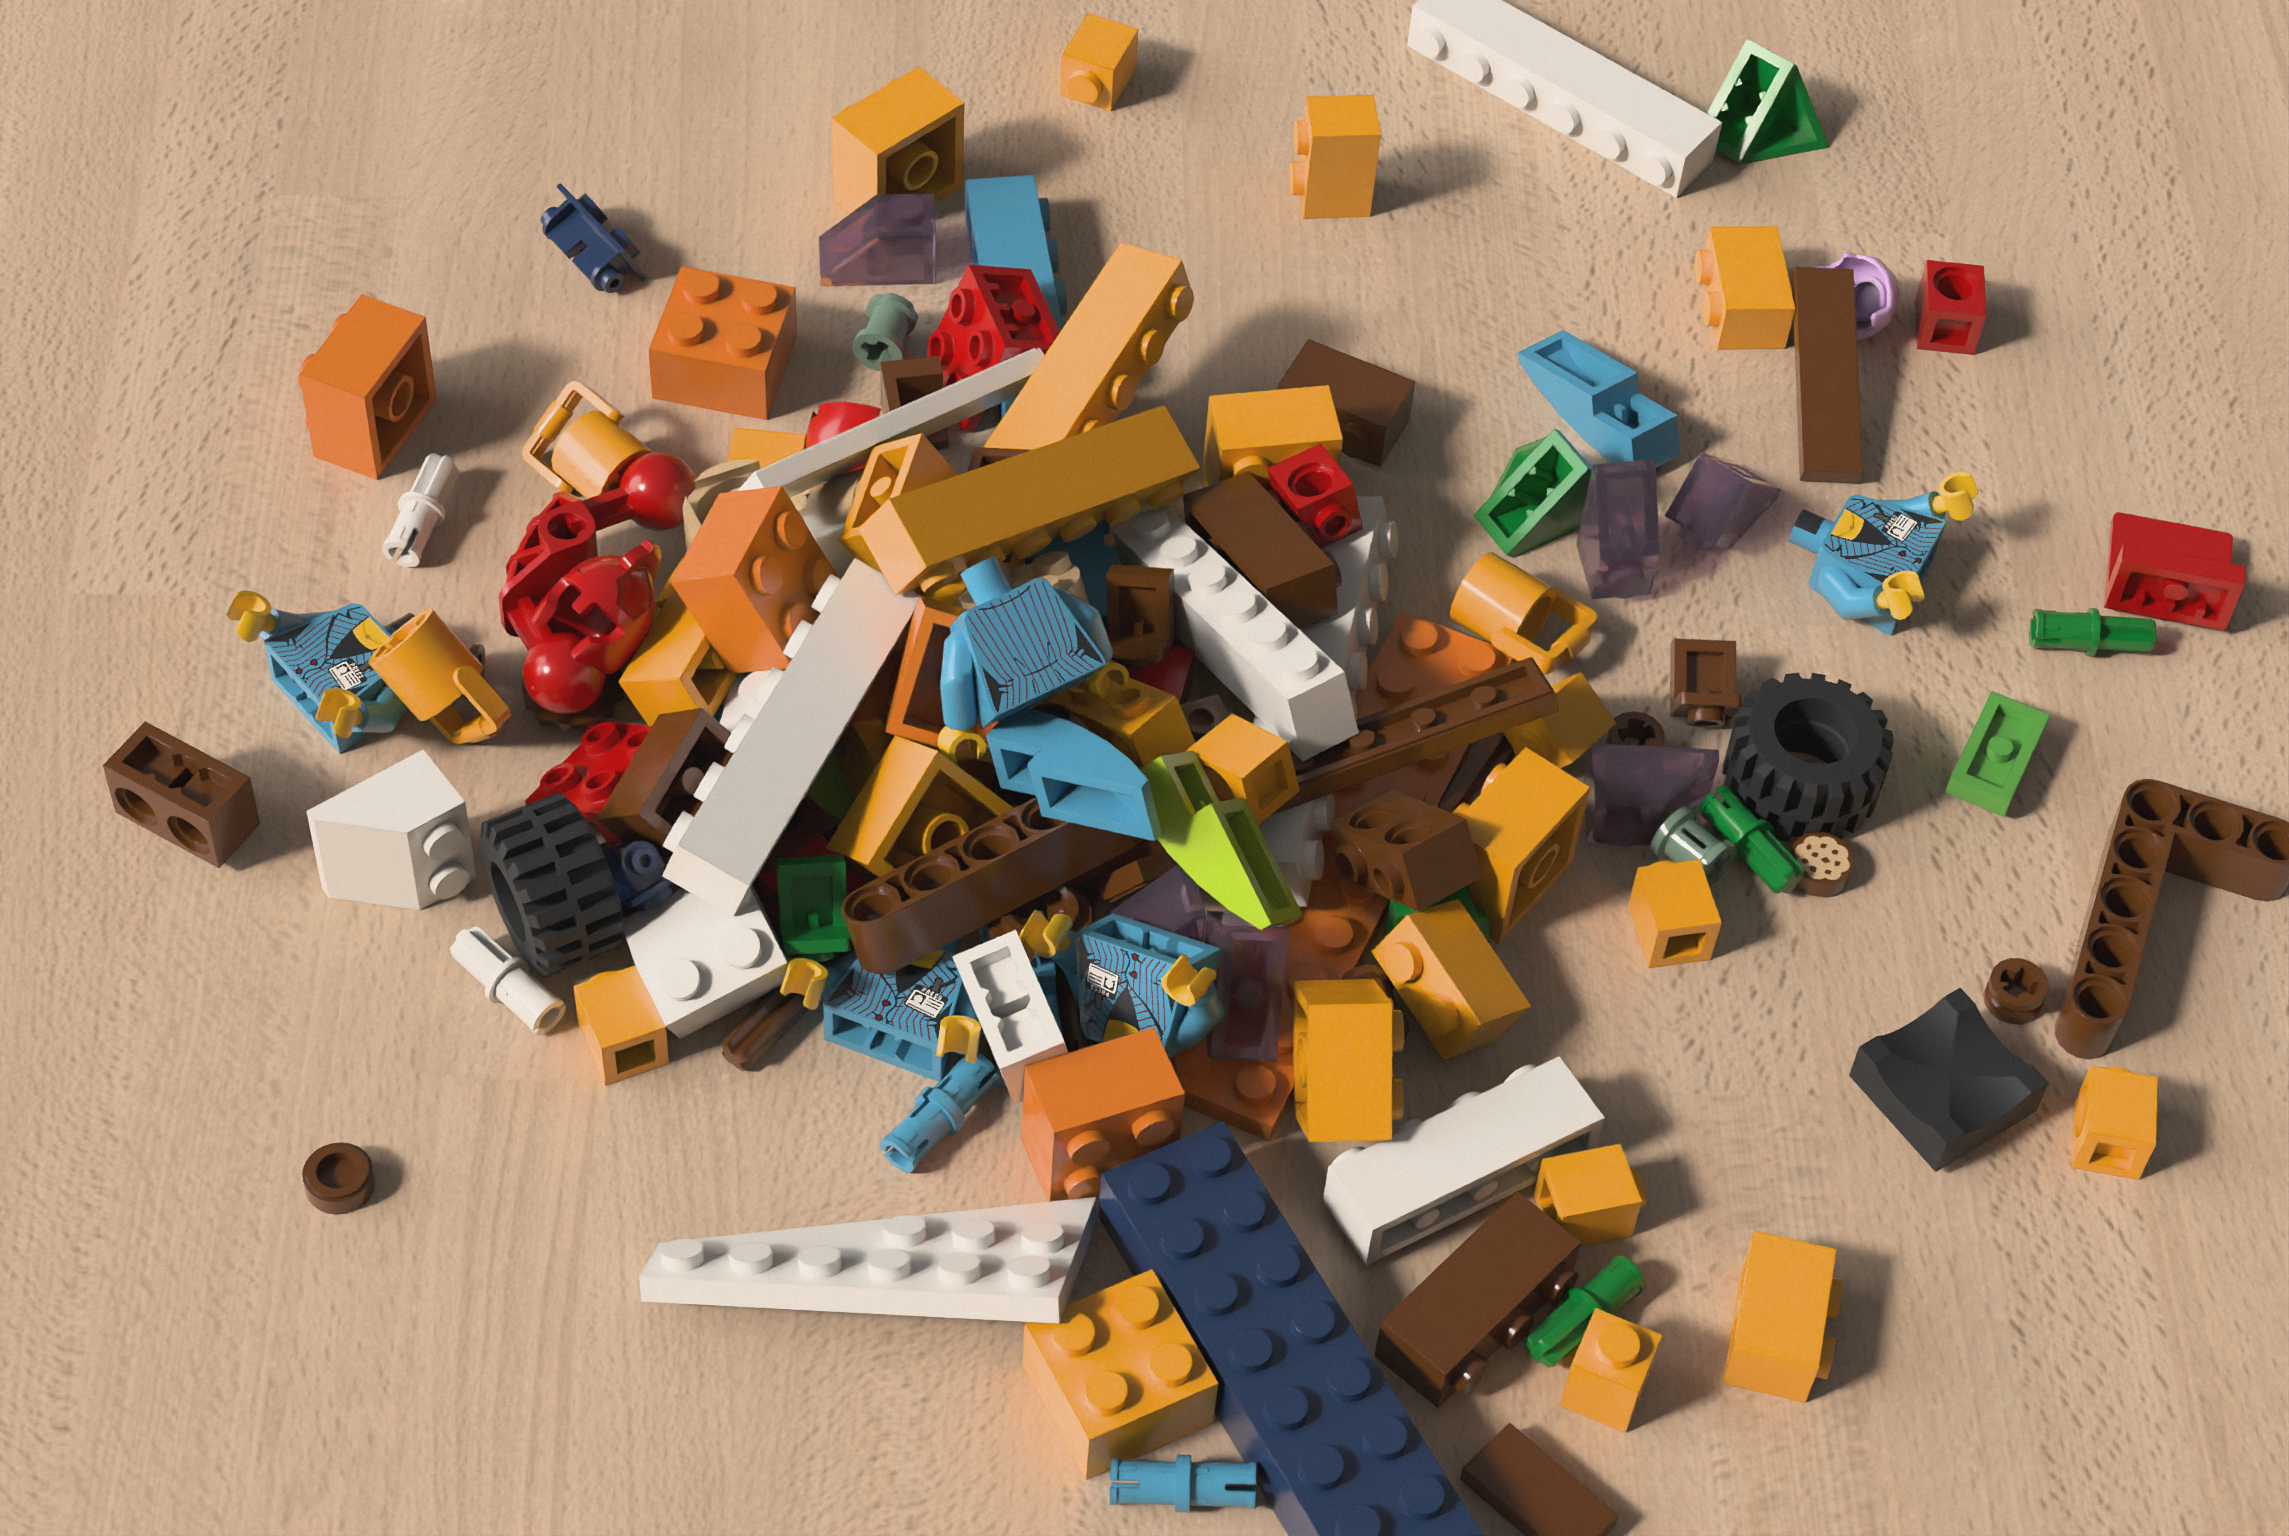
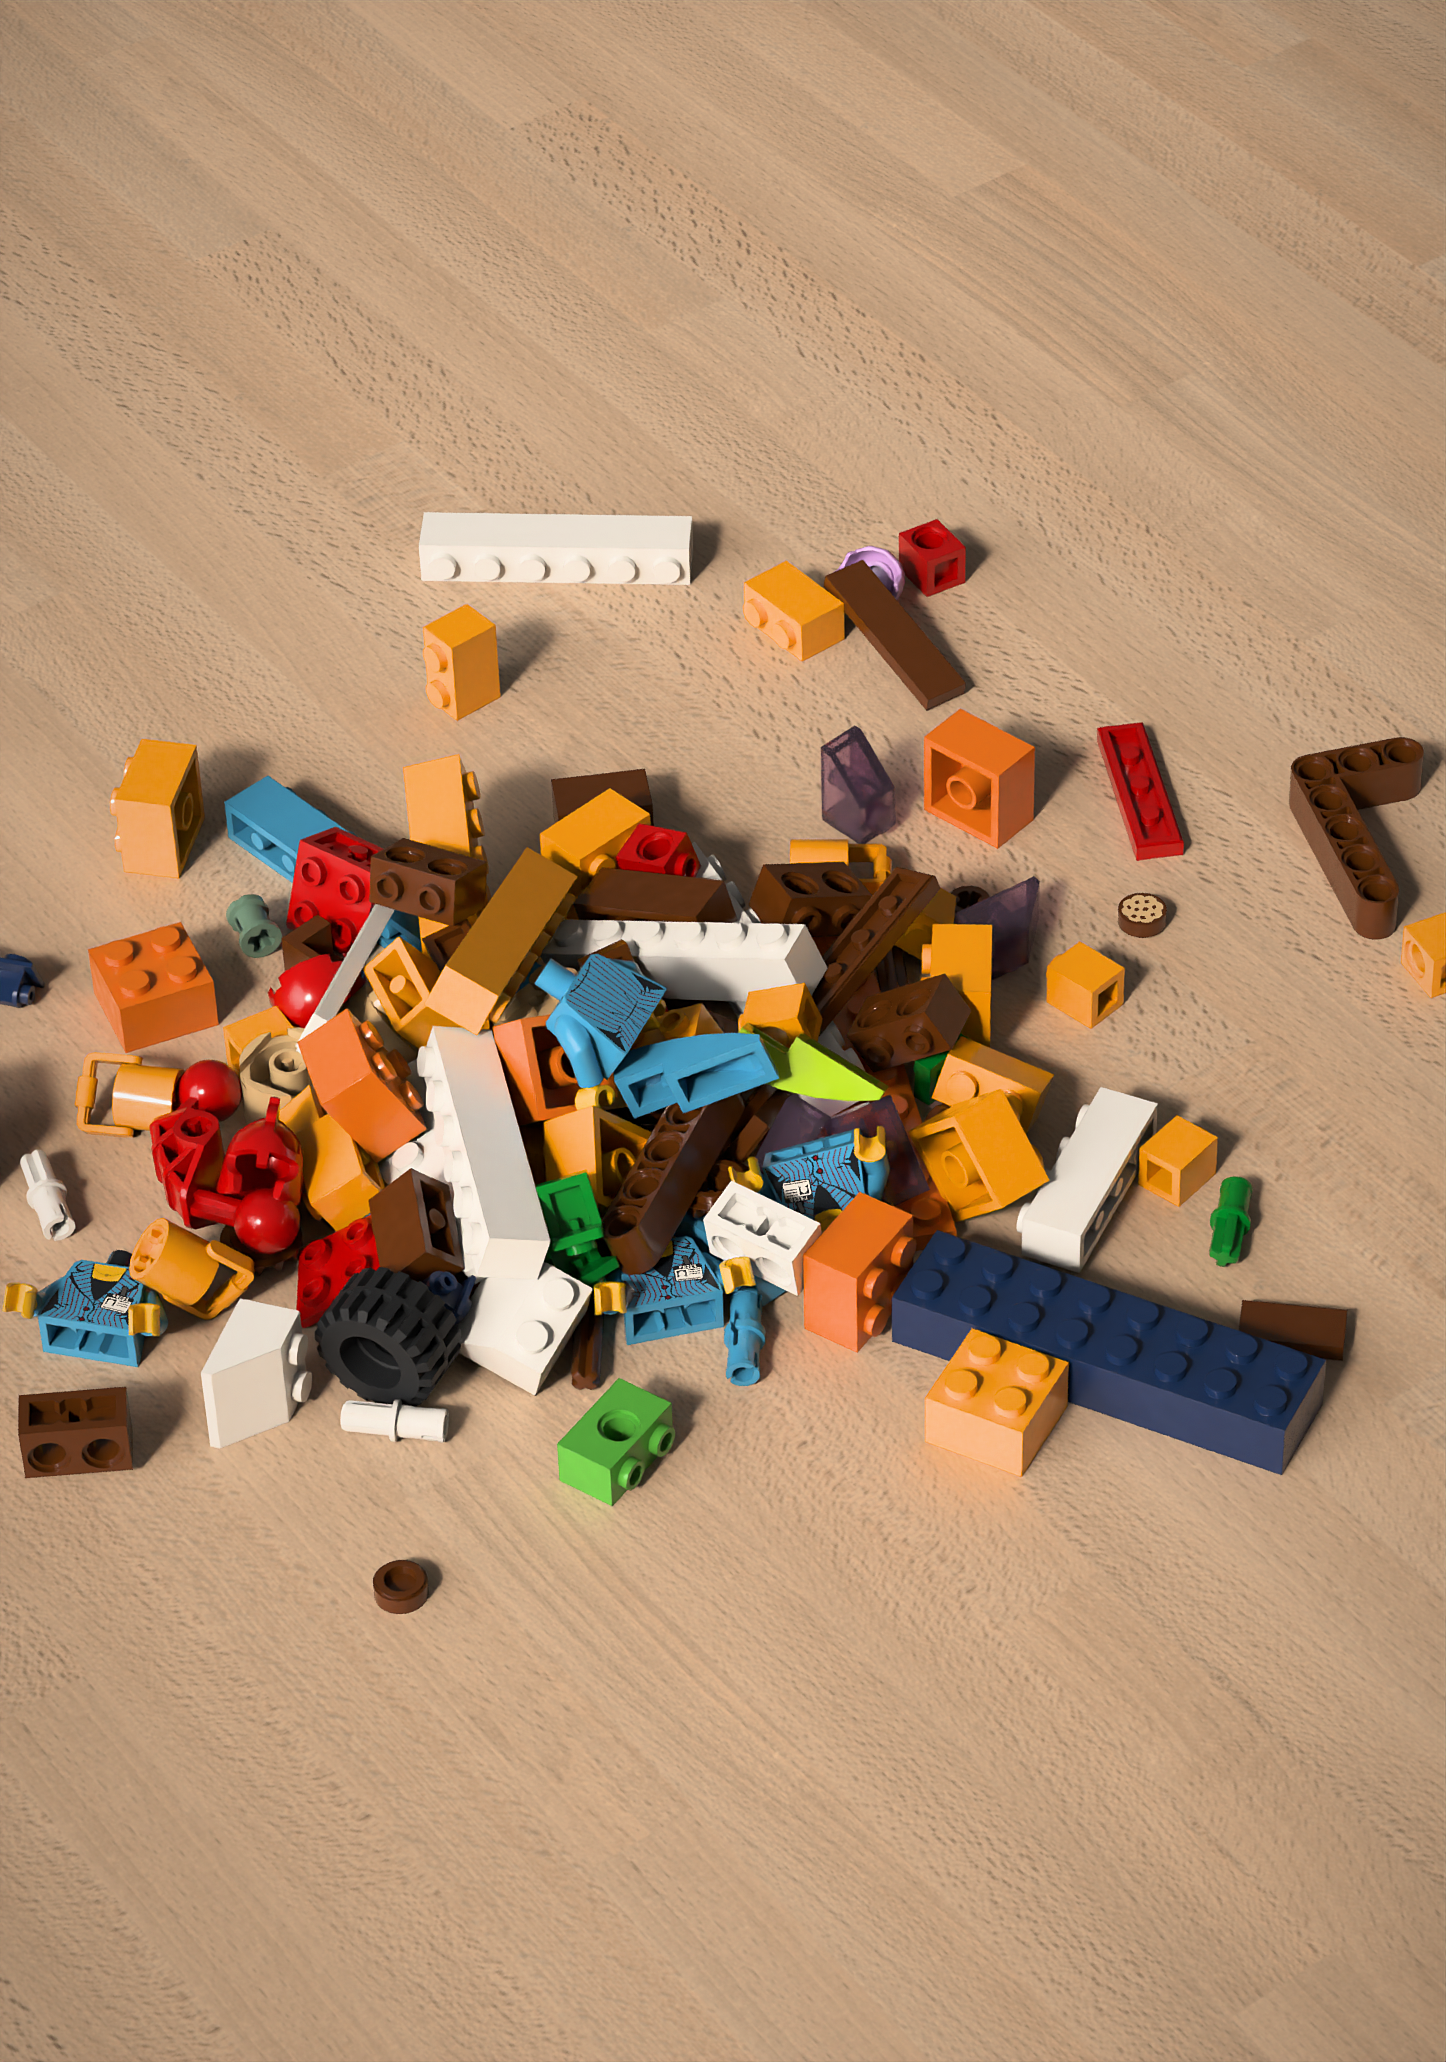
camera: 30 degrees left, 10 degrees down
(621, 1024) = (499, 1399): light orange brick -> none
(709, 1125) = (616, 1442): none -> bright green brick
(815, 865) = (571, 1213): none -> green bracket
(882, 243) = (197, 873): slope -> none
(946, 1265) = (838, 1402): white wing -> none
(1017, 386) = (428, 882): none -> reddish brown brick
(1099, 61) = (230, 689): light orange brick -> none
(1183, 1483) = (1086, 1438): dark azure pin -> none
(1434, 632) = (812, 894): none -> reddish brown brick
(1478, 1301) = (1169, 1241): reddish brown brick -> none
(1537, 495) = (776, 795): green slope -> none
(1601, 400) = (764, 725): dark azure slope -> none
(1610, 1370) = (1276, 1238): light orange brick -> none
(1687, 840) = (1057, 940): sand green bush -> none
(1703, 681) = (982, 850): reddish brown bracket -> none
(1719, 502) = (898, 742): slope -> none
(1753, 840) = (1091, 922): green axle -> none
(1763, 593) = (979, 778): none -> orange brick
(1765, 109) = (708, 493): green slope -> none
(1782, 1317) = (1344, 1158): light orange brick -> none
(1813, 720) = (1086, 854): black tyre -> none
(1881, 550) = (1030, 709): torso -> none
(1947, 1081) = (1326, 985): black brick -> none
(1948, 711) = (1140, 791): none -> red tile
(1997, 753) = (1193, 796): bright green plate -> none
(2025, 1006) = (1318, 909): reddish brown bush -> none
(2091, 632) = (1184, 701): green axle -> none
(2172, 571) = (1205, 641): red bracket -> none

